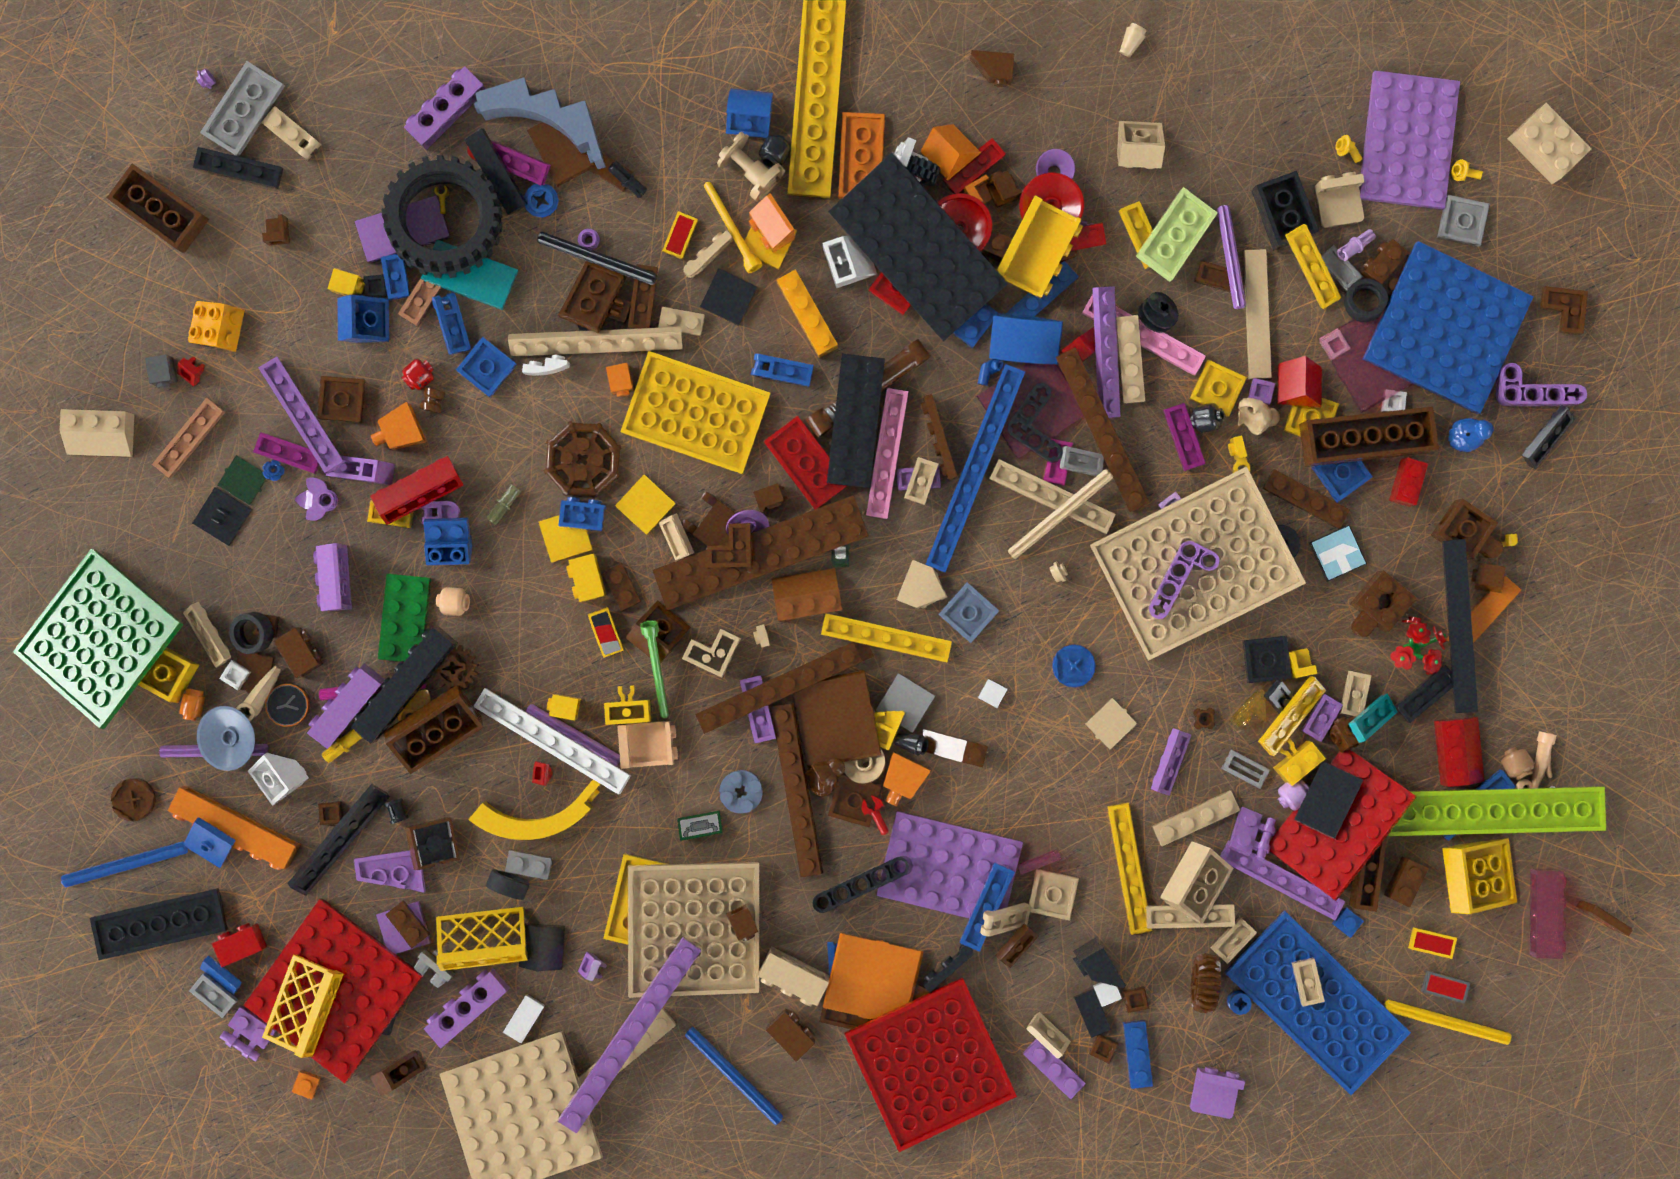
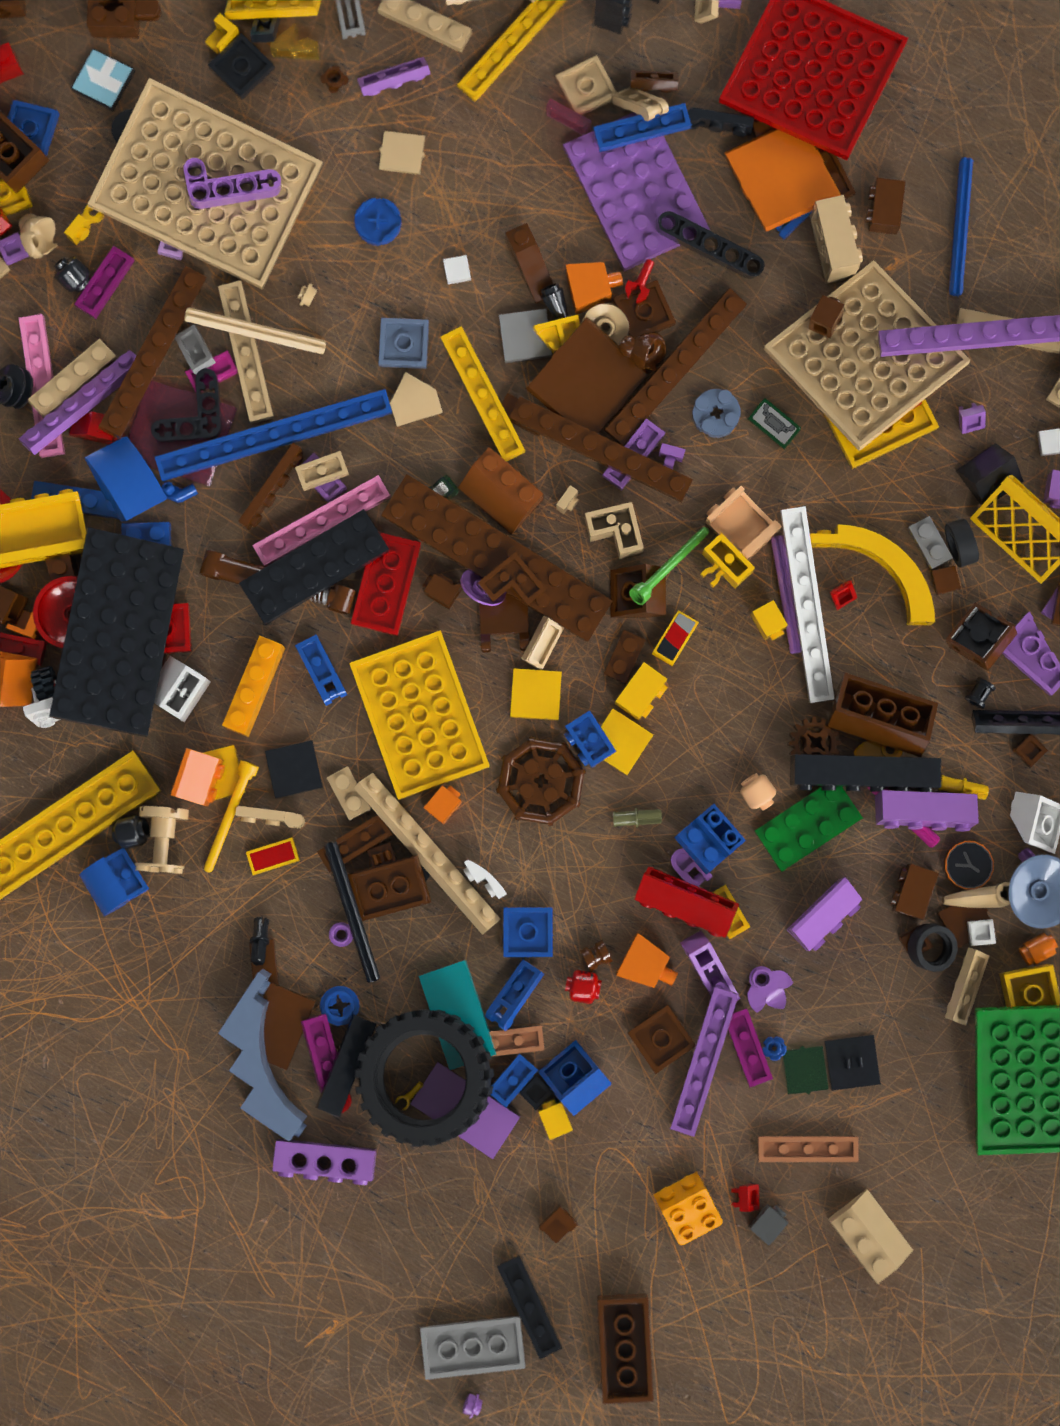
camera: 125 degrees left, 5 degrees down
(290, 132) = (459, 1285): tan plate -> none
(493, 853) = (945, 580): none -> reddish brown tile
(735, 734) = (671, 454): none -> medium lavender tile
(860, 148) = (72, 757): orange tile -> none
(1218, 386) = (38, 289): yellow tile -> none
(1306, 499) = (77, 141): reddish brown plate -> none

